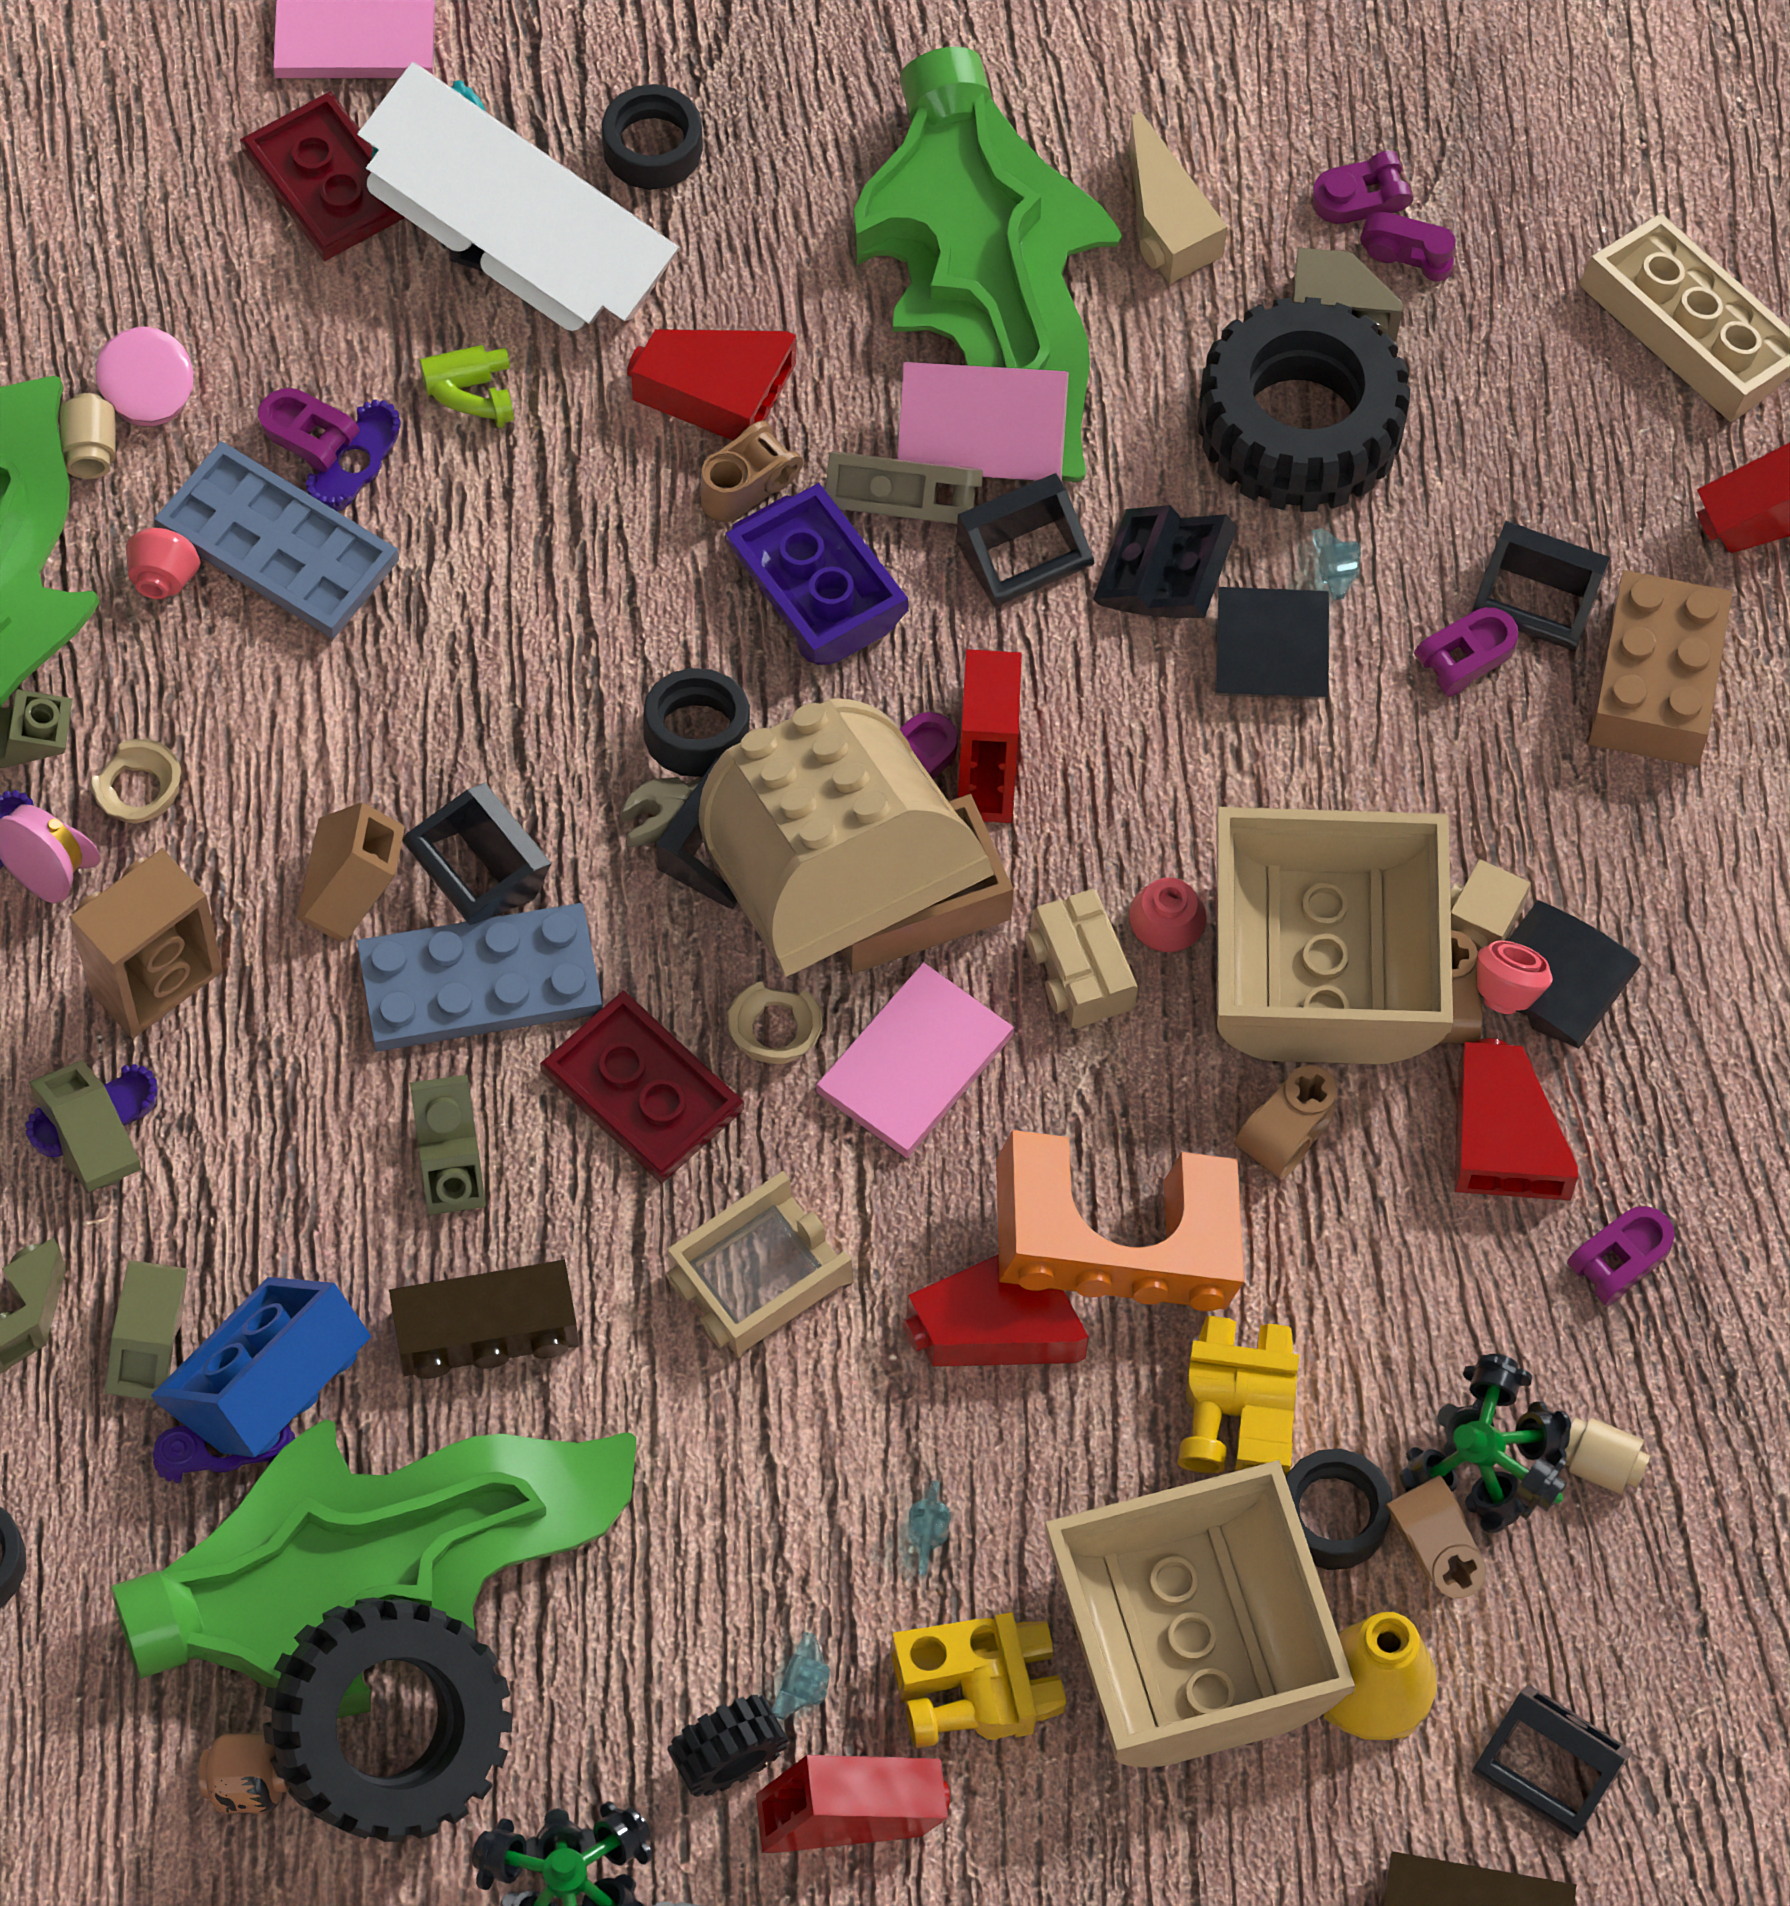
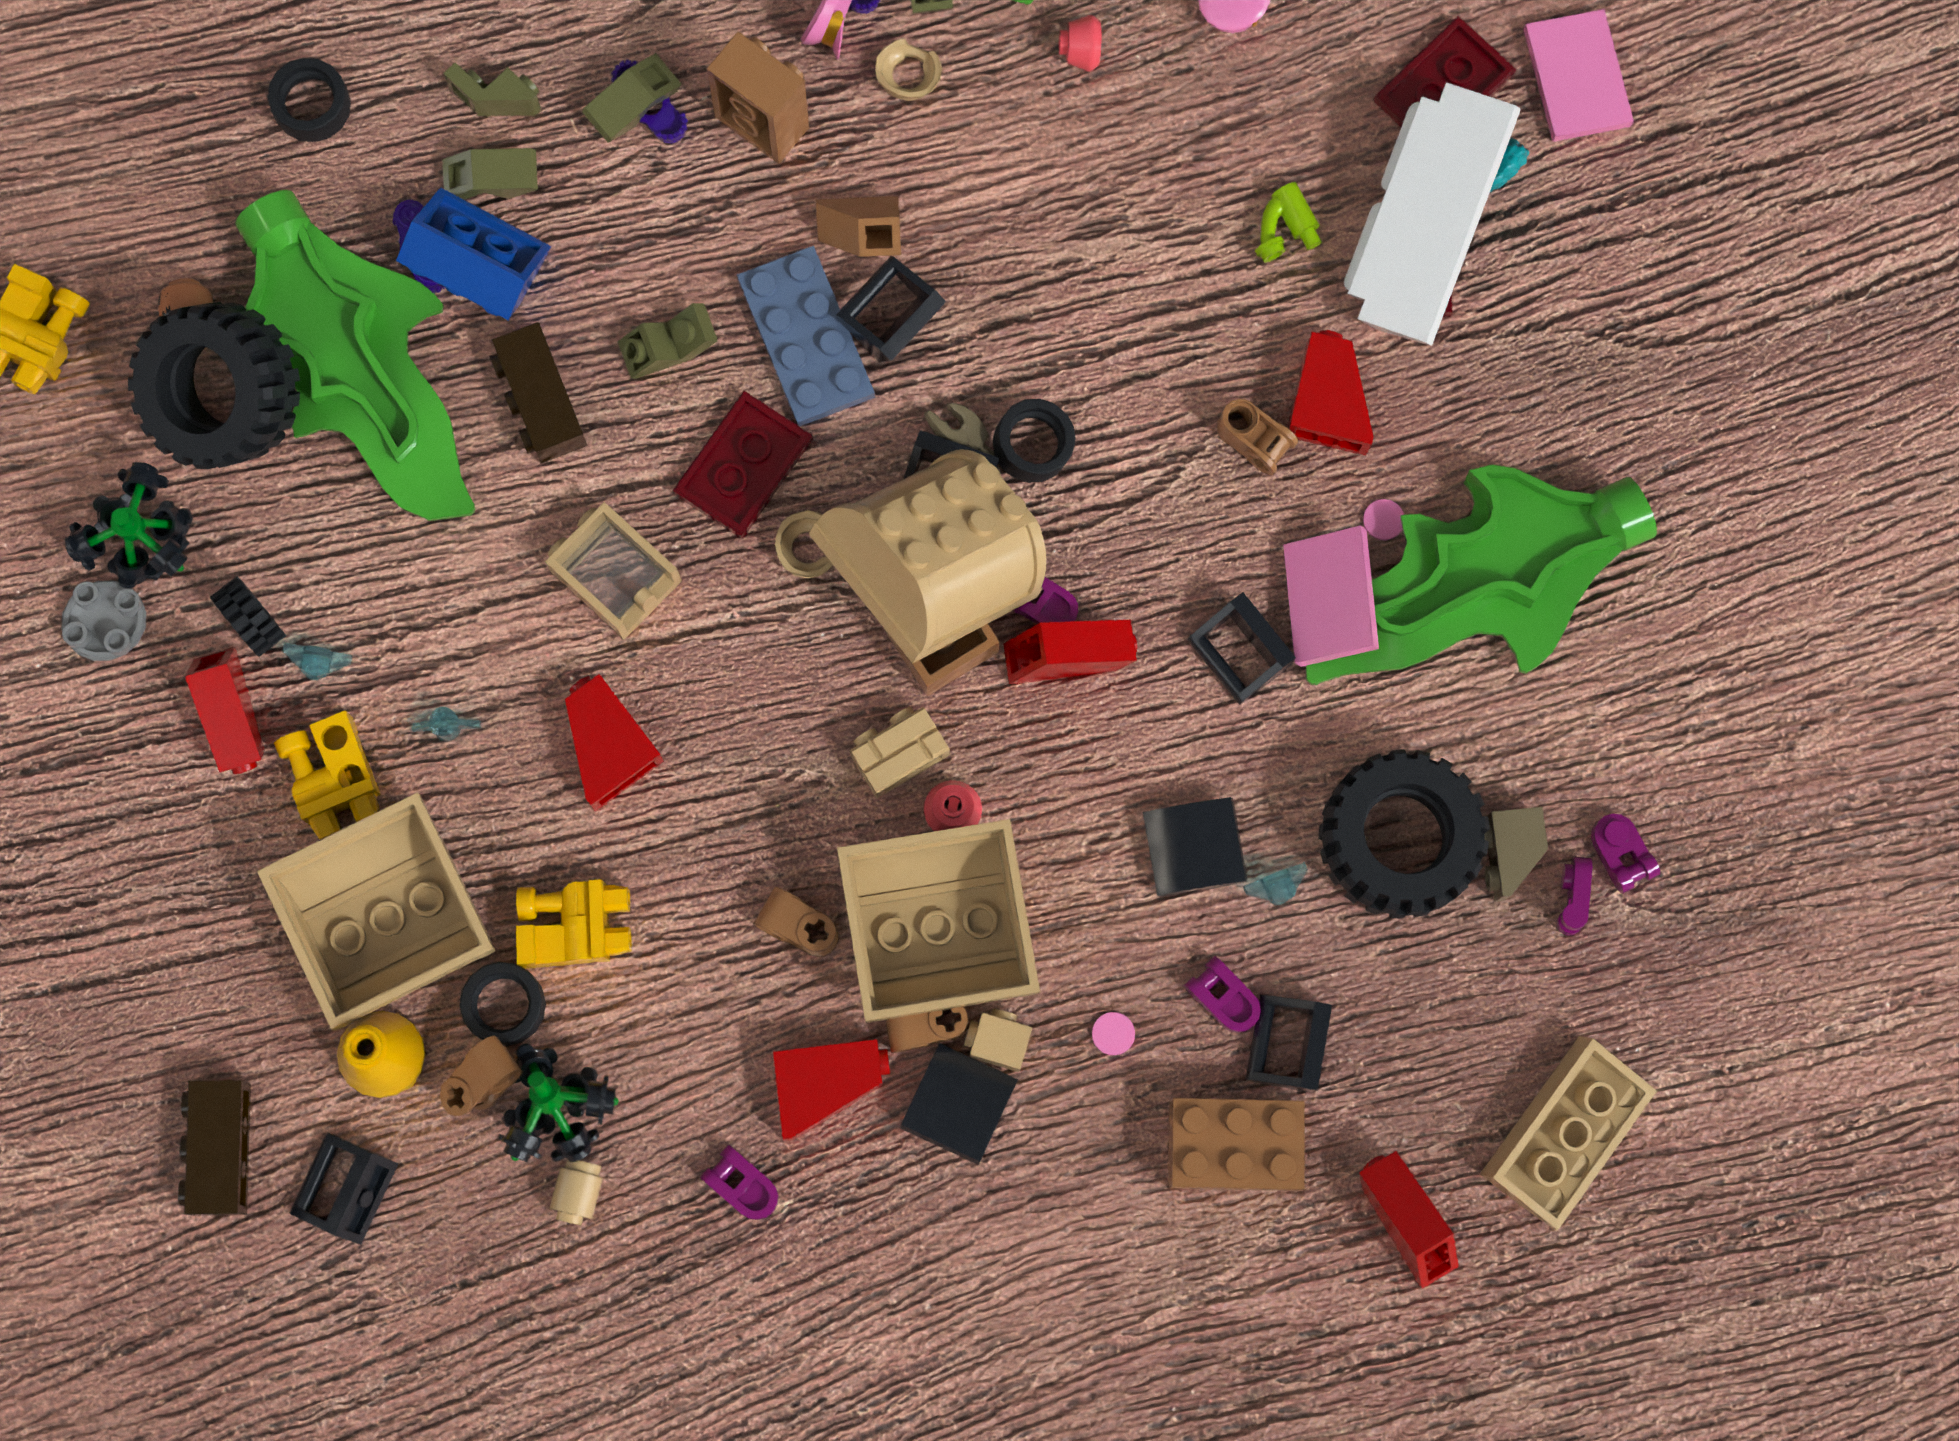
camera: 75 degrees right, 15 degrees up
(278, 539) = (1123, 118): sand blue plate -> none
(292, 415) = (1223, 104): magenta plate -> none
(377, 435) = (1181, 149): dark purple piece -> none
(649, 103) = (1548, 281): black tyre -> none
(818, 575) = (1176, 499): dark purple slope -> none
(883, 359) = (1383, 519): none -> bright pink piece
(899, 486) = (1265, 549): dark tan plate -> none
(915, 1060) = (800, 649): bright pink tile -> none
(1051, 1246) = (645, 760): arch -> none
(1165, 563) = (1247, 756): black slope -> none
(1174, 217) = (1559, 704): tan slope -> none
(1492, 789) = (1113, 1033): none -> bright pink piece
(1511, 976) = (935, 1065): coral cone -> none

